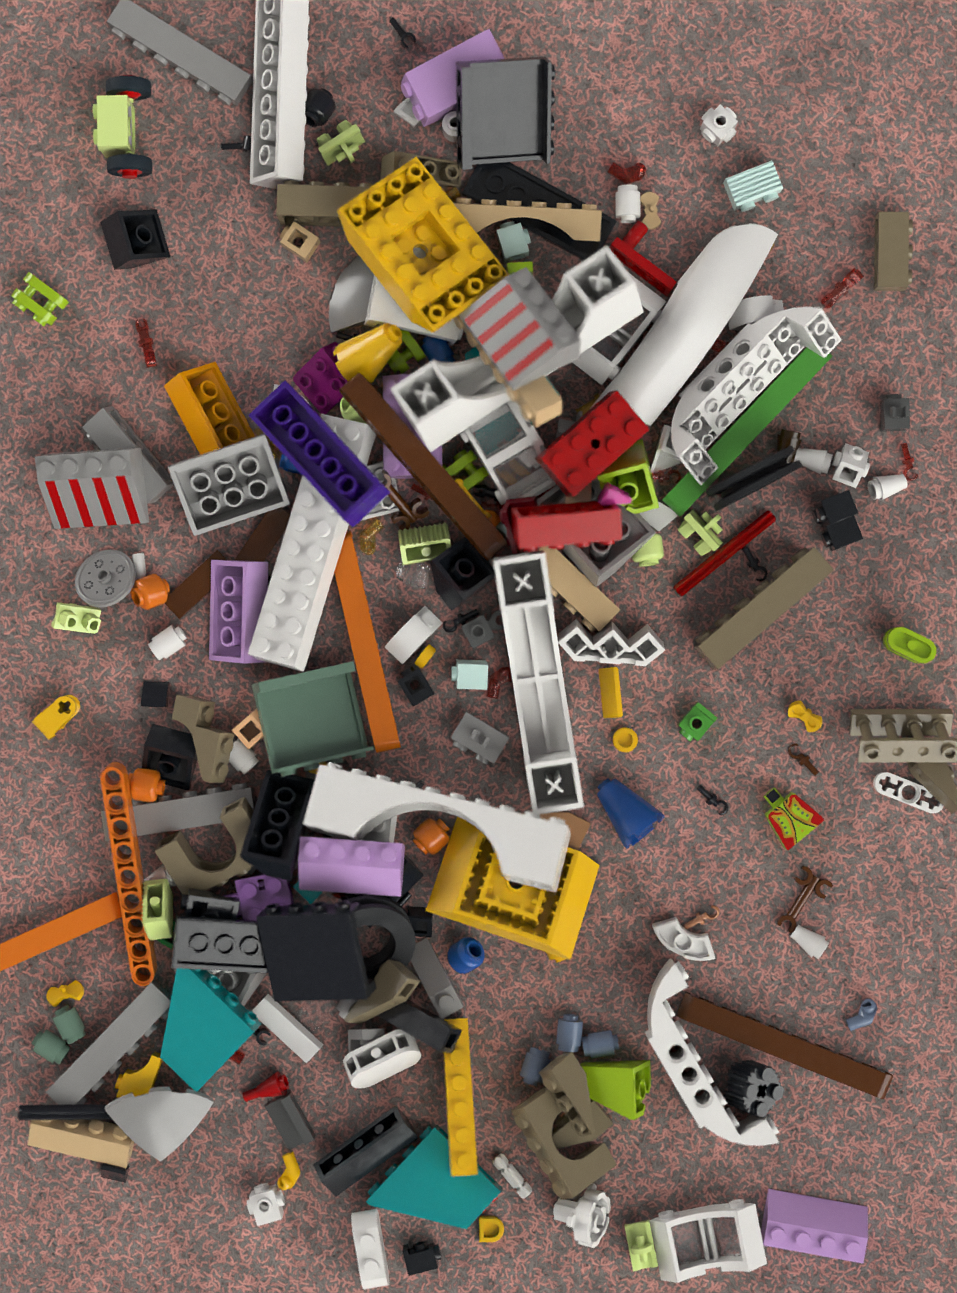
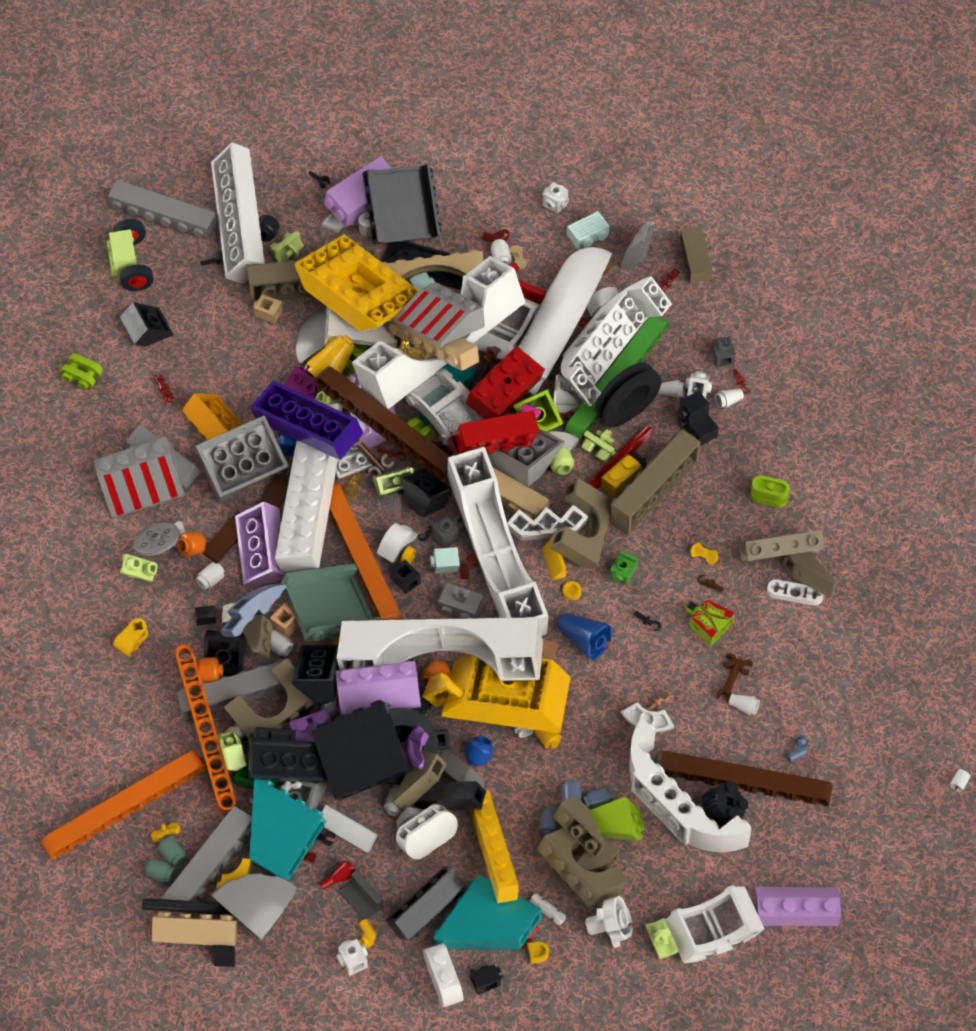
camera: 10 degrees left, 30 degrees down
(213, 712) = (254, 603): none -> sand blue slope
(384, 954) = (414, 746): none -> medium lavender piece
(432, 874) = (441, 690): none -> yellow arch
(469, 366) = (413, 352): none -> clear yellow arm
(577, 388) = (489, 358): none -> reddish brown bar
(679, 638) = (597, 506): none -> dark tan arch
(721, 586) = (620, 475): none -> yellow brick
(816, 229) = (638, 247): none -> light grey brick

